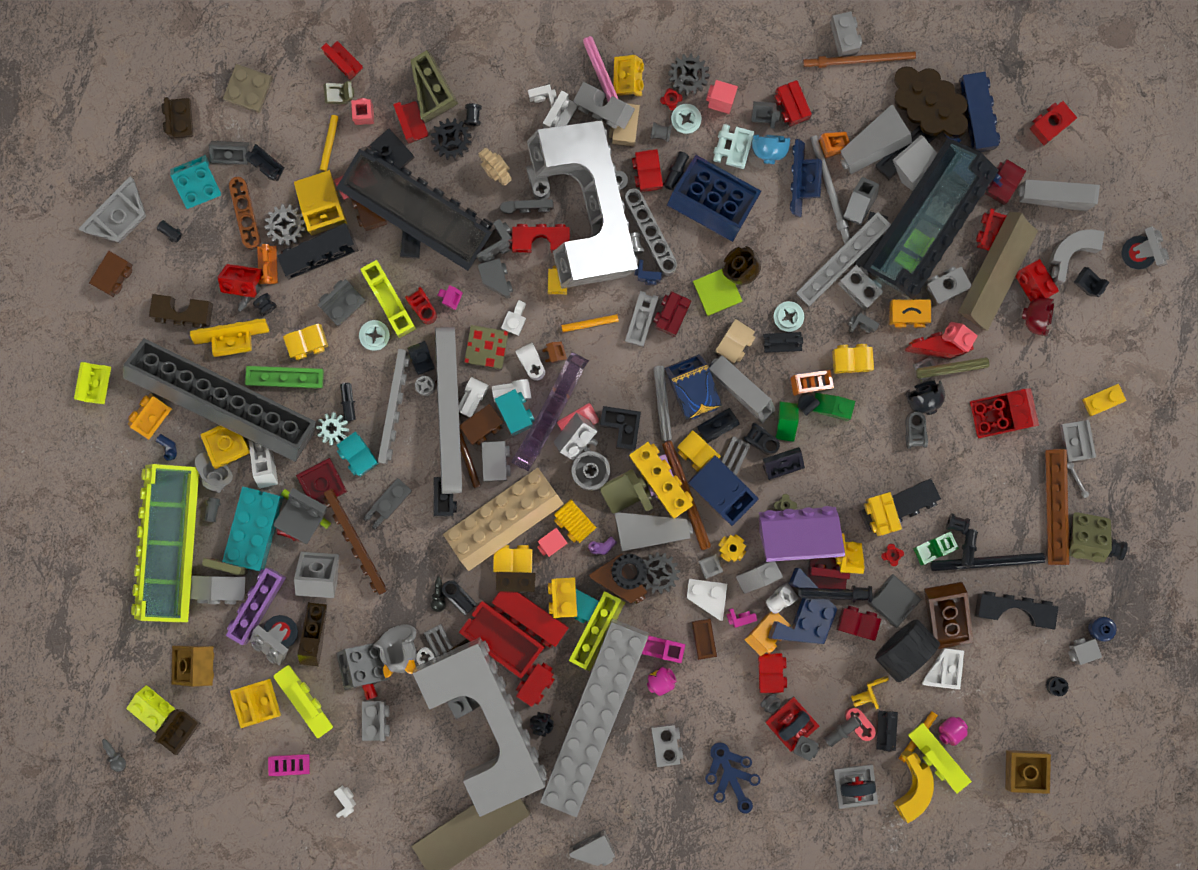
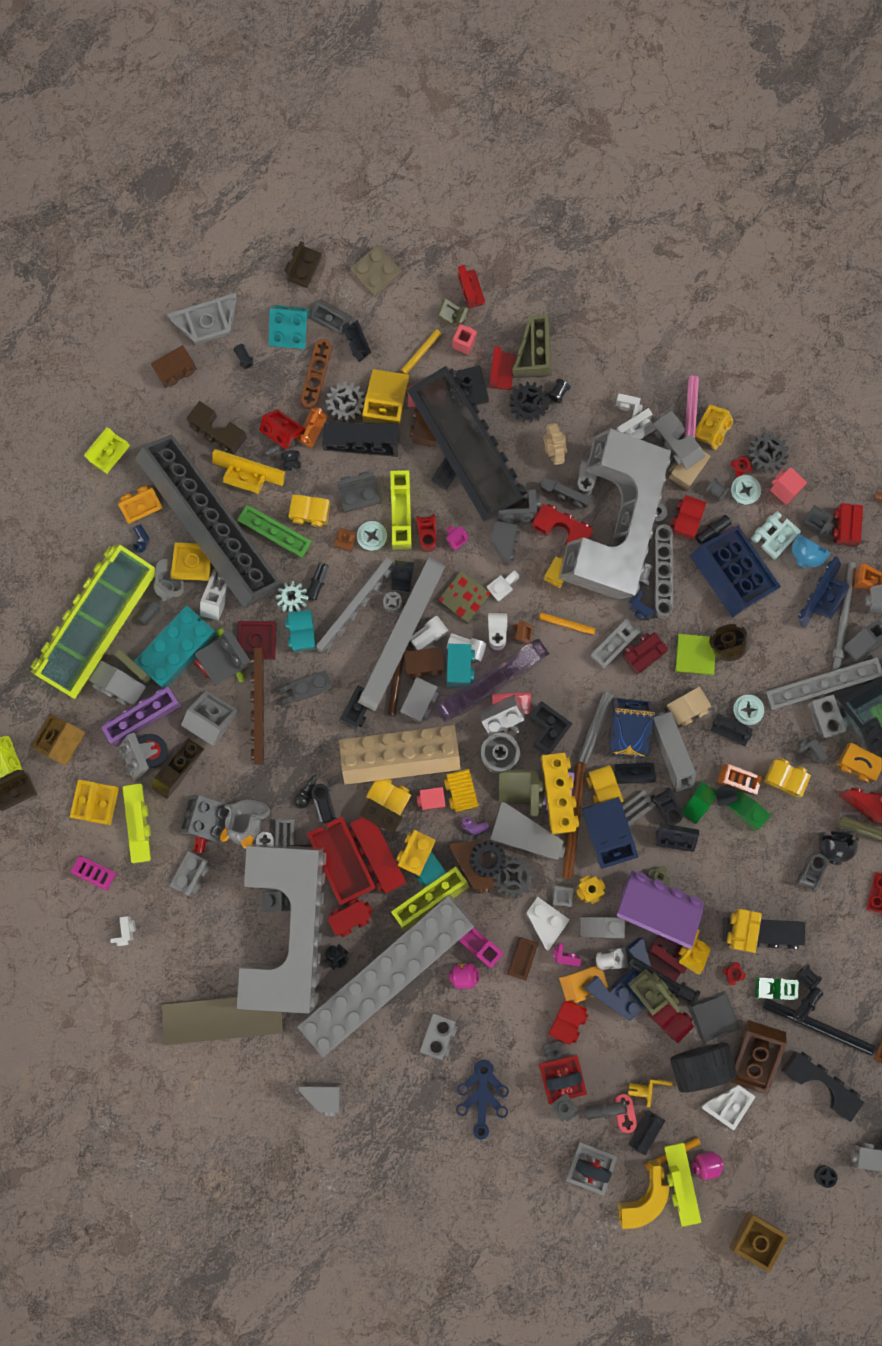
camera: 30 degrees right, 5 degrees down
(352, 350) = (345, 539): none -> dark orange tile
(831, 609) = (653, 992): none -> olive bracket

